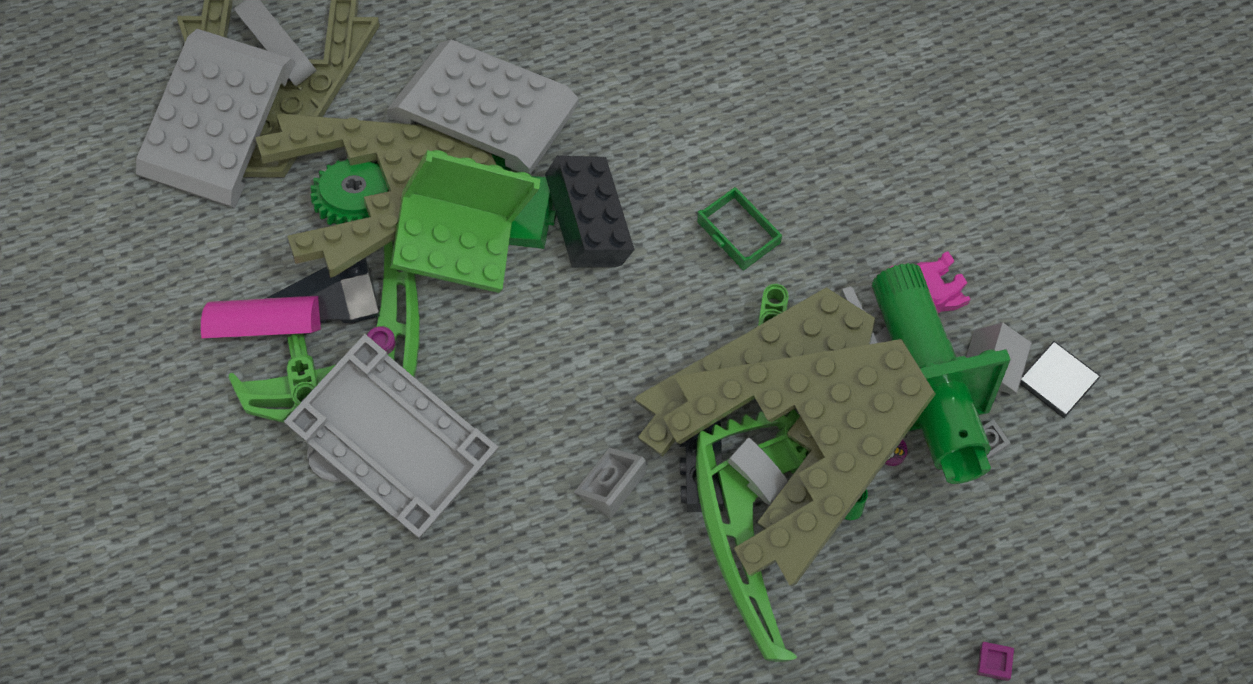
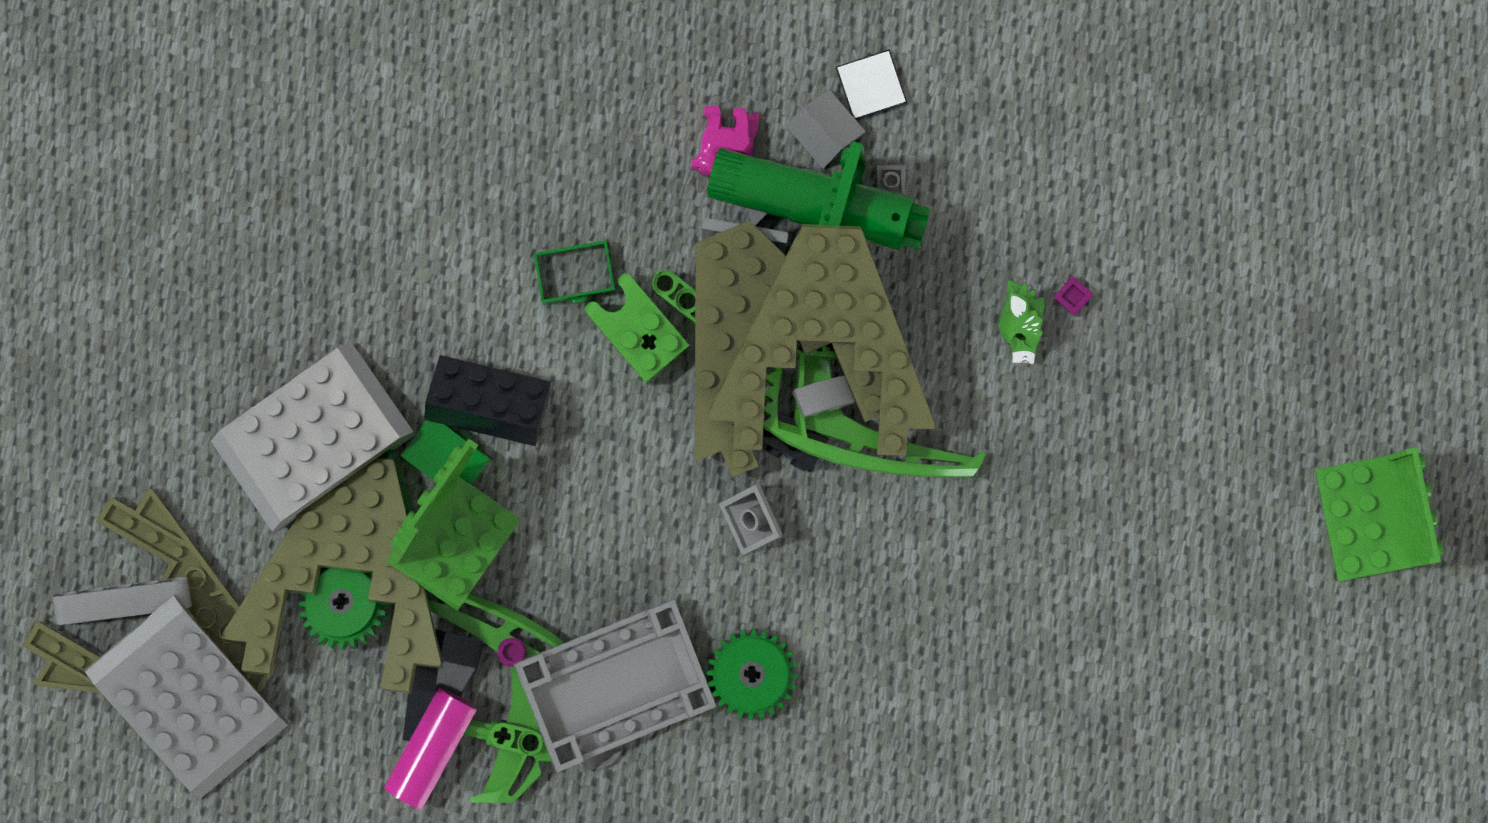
camera: 65 degrees left, 20 degrees up
(446, 563) = (768, 660): none -> green gear
(720, 292) = (638, 319): none -> bright green brick
(949, 623) = (1022, 315): none -> bright green piece

